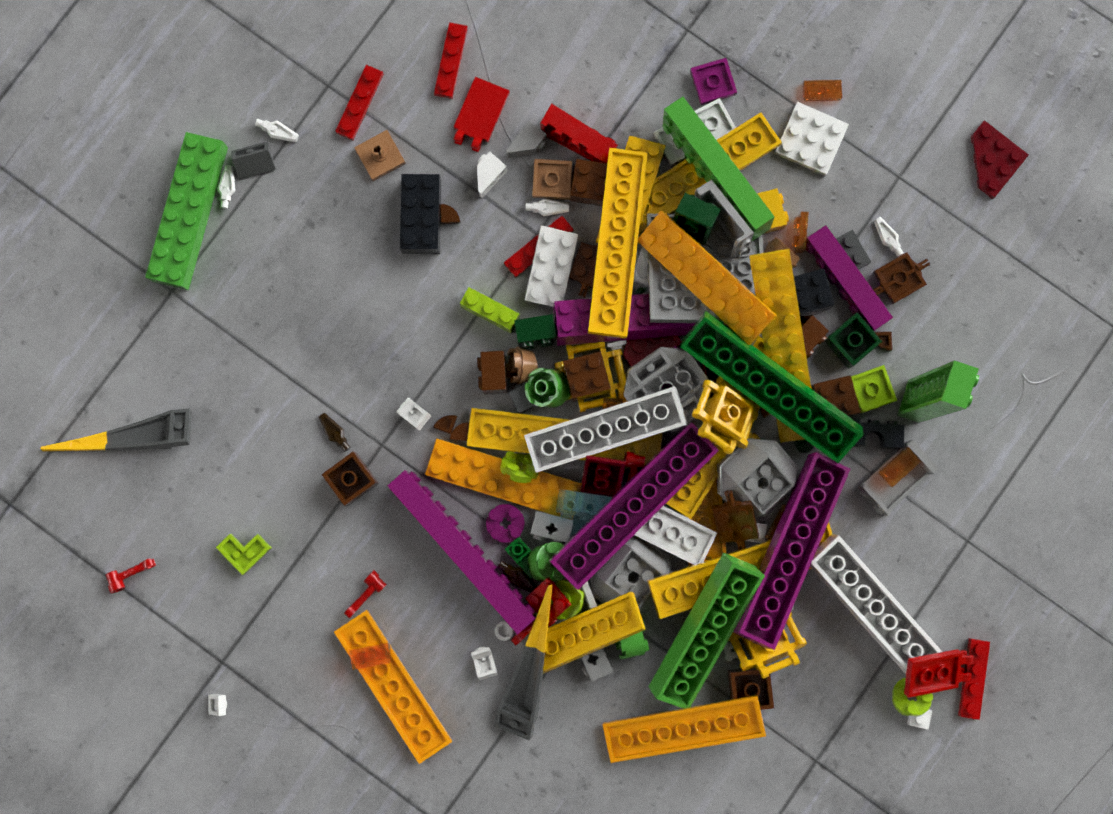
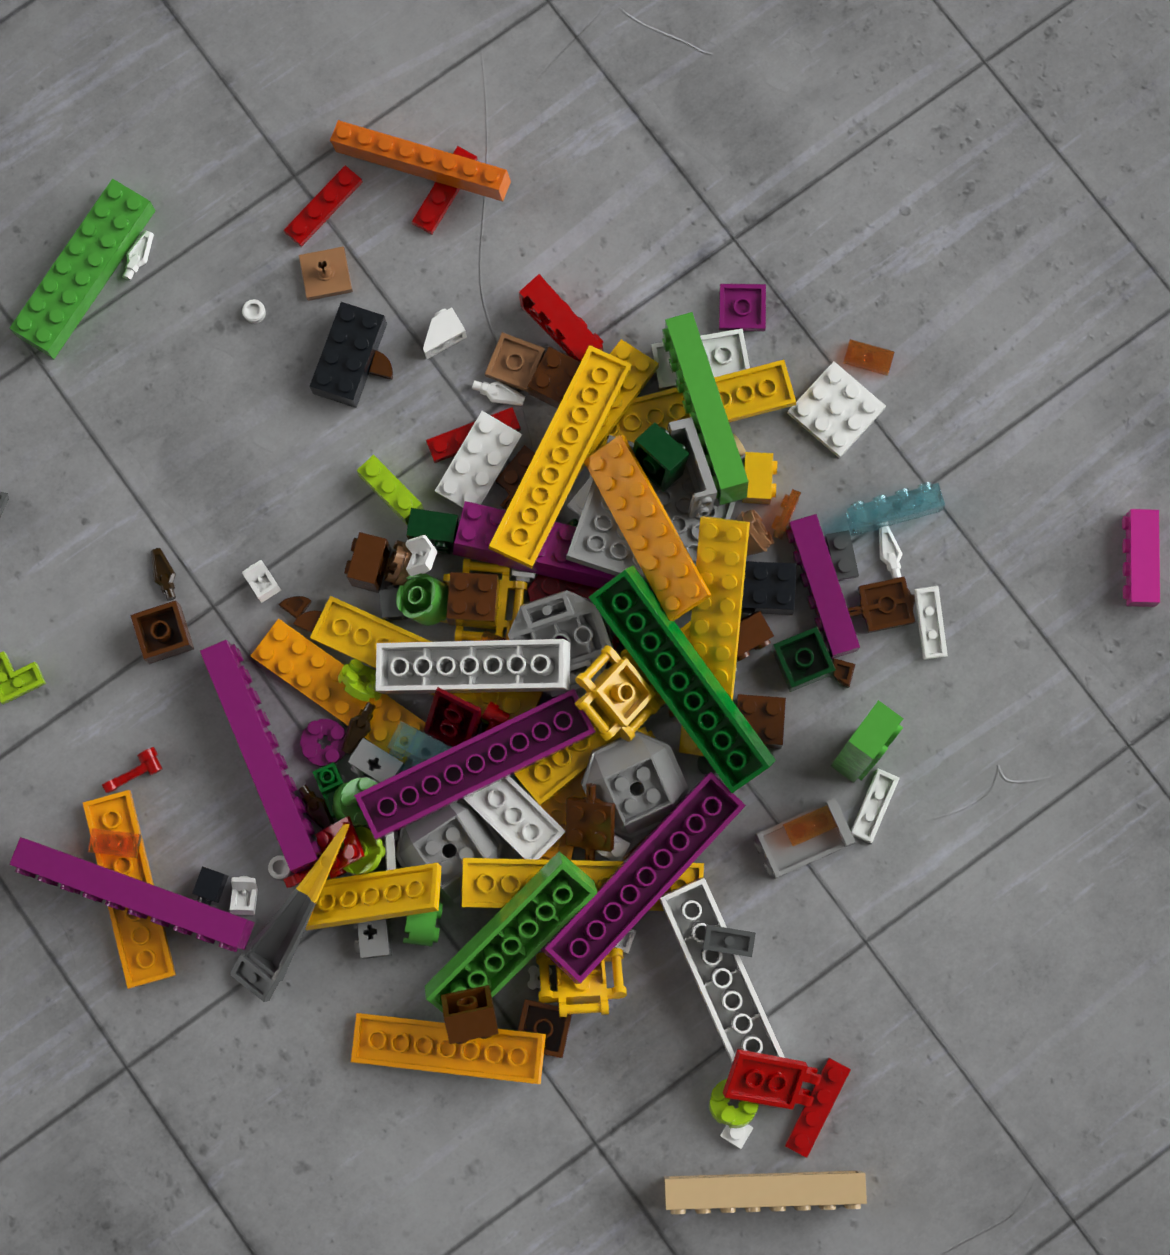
camera: 25 degrees right, 5 degrees down
(252, 160) = (178, 234): dark grey panel -> none
(277, 130) = (218, 209): white piece -> none
(333, 203) = (253, 311): none -> white tile
(398, 692) = (127, 892): none -> magenta brick
(425, 42) = (420, 160): none -> orange brick
(455, 663) = (209, 885): none -> black brick
(480, 112) = (458, 260): red tile -> none
(527, 141) = (500, 310): light grey slope -> none
(529, 504) = (358, 728): none -> dark brown piece
(536, 355) = (422, 555): none -> white bracket
(696, 701) = (469, 1014): none -> reddish brown brick
(873, 389) = (809, 724): lime plate -> none
(874, 578) = (729, 940): none -> dark grey plate
(879, 204) = (894, 509): none -> clear light blue brick
(890, 434) = (812, 782): black arch -> none
(938, 281) = (930, 622): none -> white tile
(941, 439) = (874, 805): none -> white tile
(959, 757) = (765, 1190): none -> tan brick
(994, 158) = (1048, 500): dark red plate -> none
(1080, 180) = (1142, 558): none -> dark pink brick

